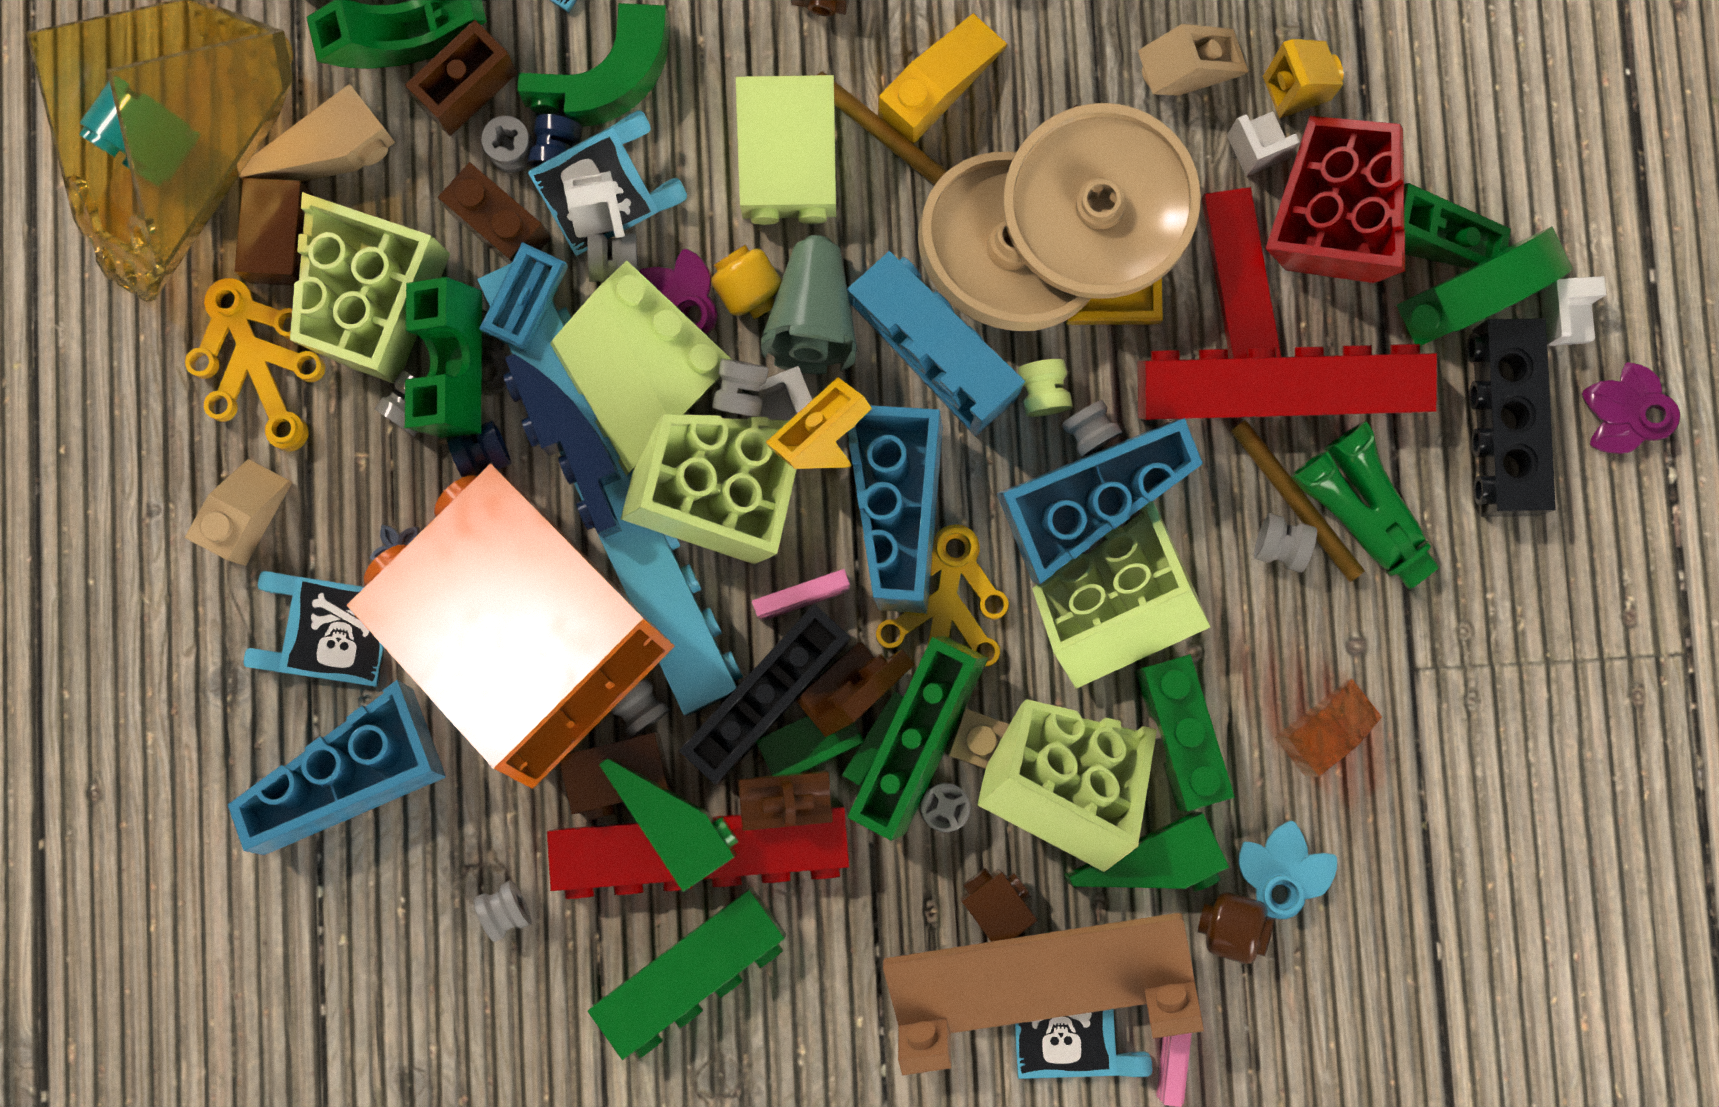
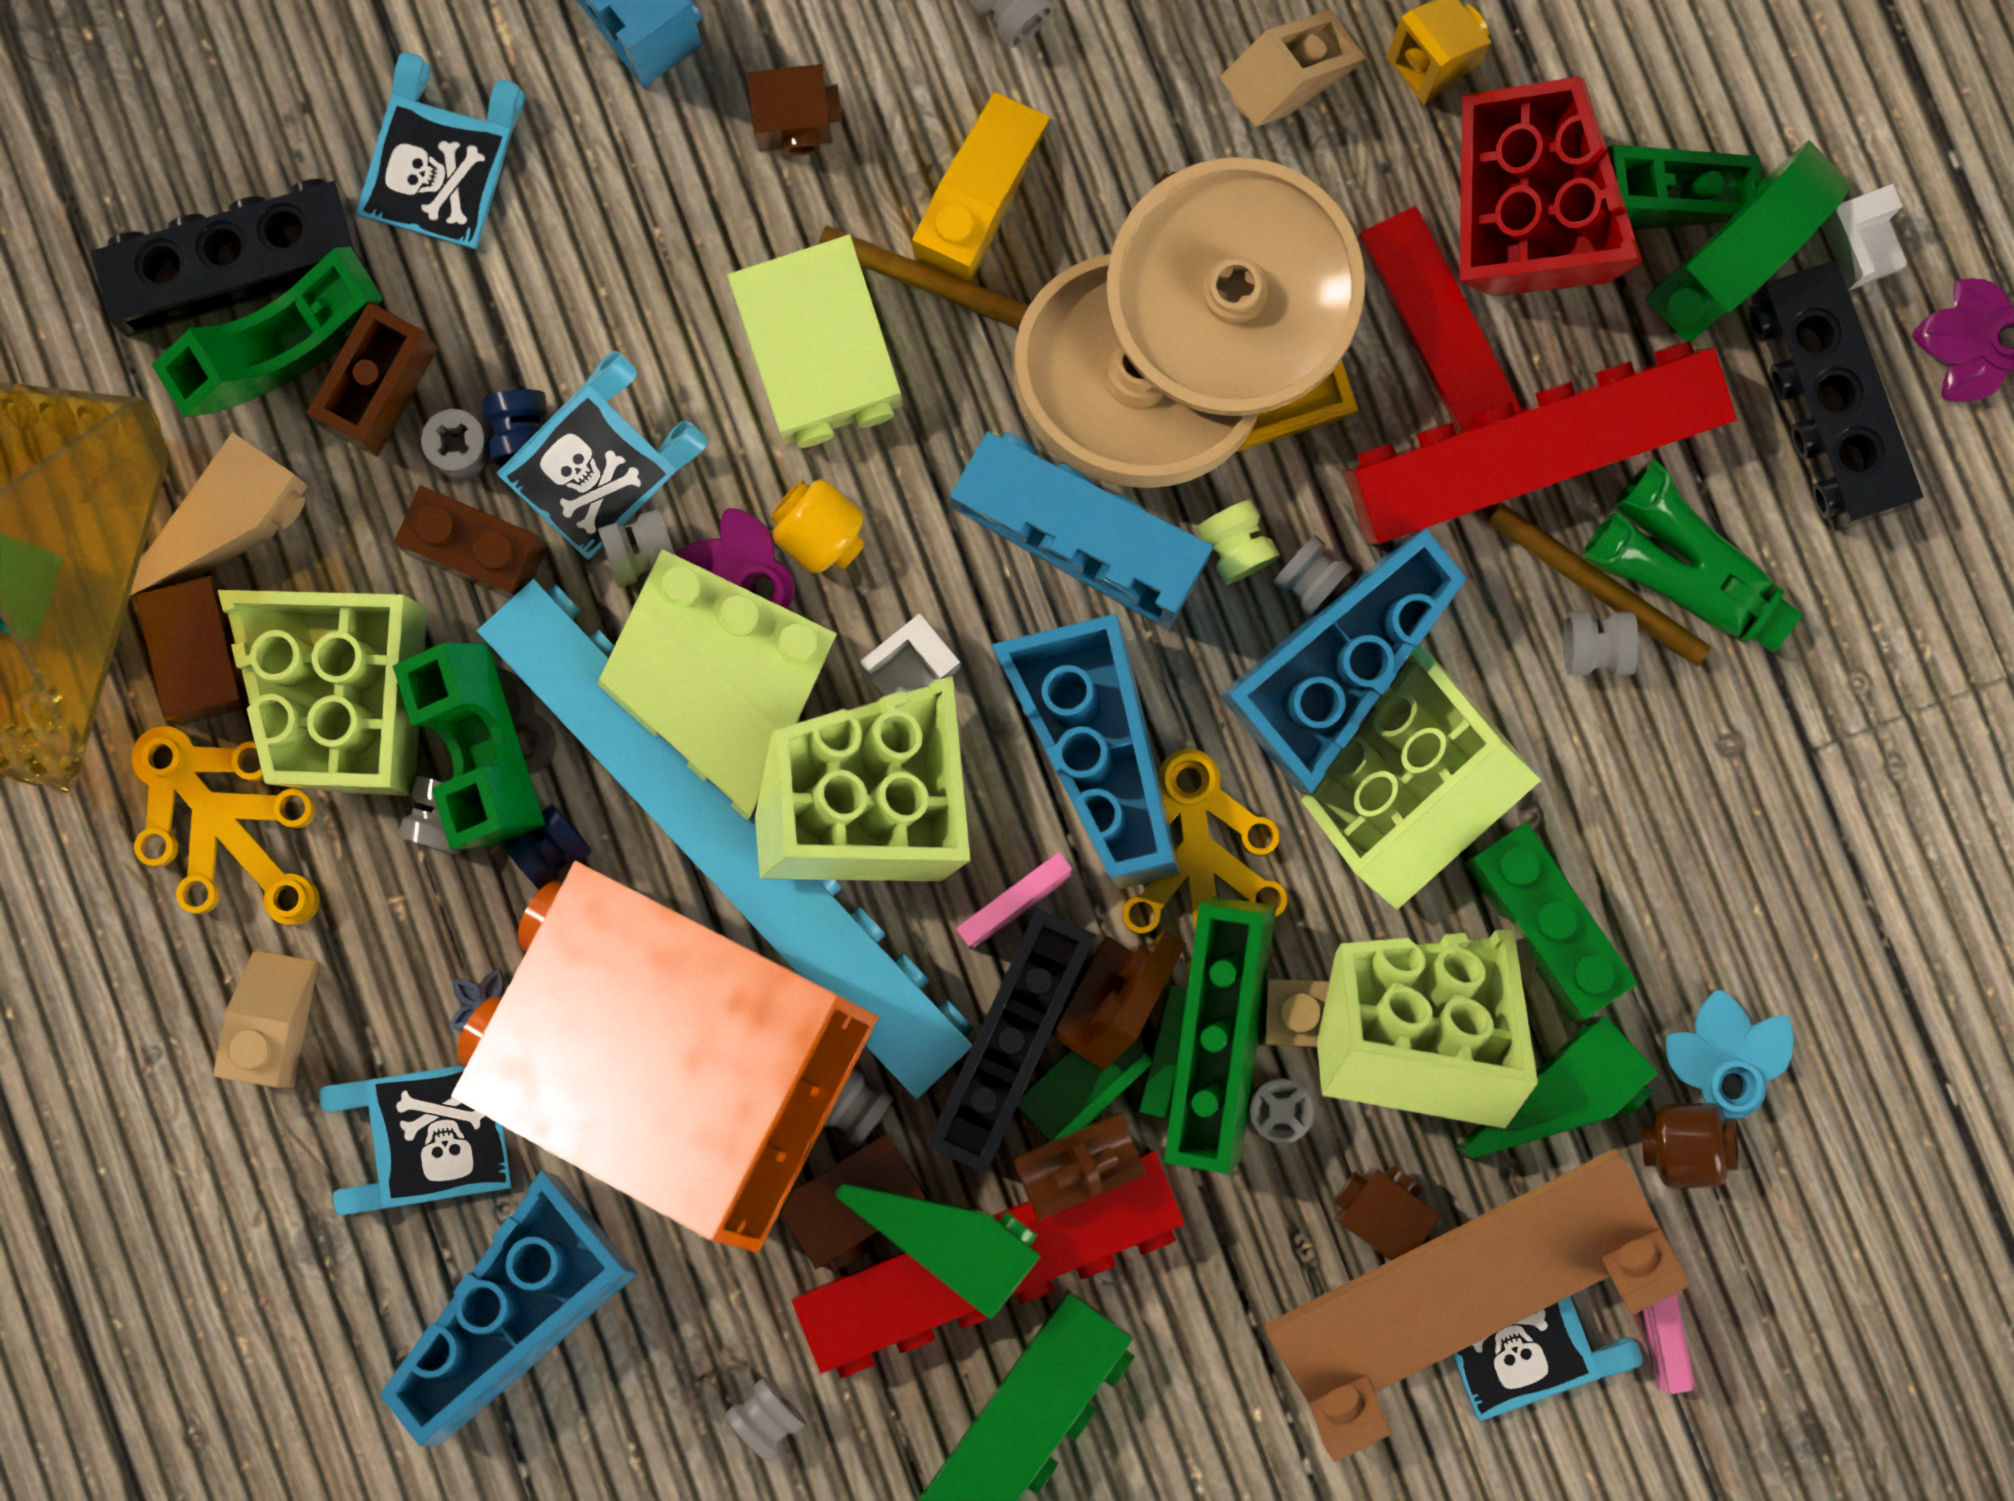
camera: 15 degrees left, 0 degrees up
(552, 282) = (537, 689): dark azure tile -> none
(560, 426) = (644, 783): dark blue slope -> none
(593, 205) = (594, 489): white panel -> none
(617, 81) = (569, 324): green arch -> none
(744, 376) = (857, 649): light grey wheel -> none
(811, 311) = (913, 537): sand green cone -> none
(812, 433) = (968, 692): yellow slope -> none
(1260, 142) = (1410, 145): white panel -> none
(1329, 730) = (1729, 860): clear orange slope -> none

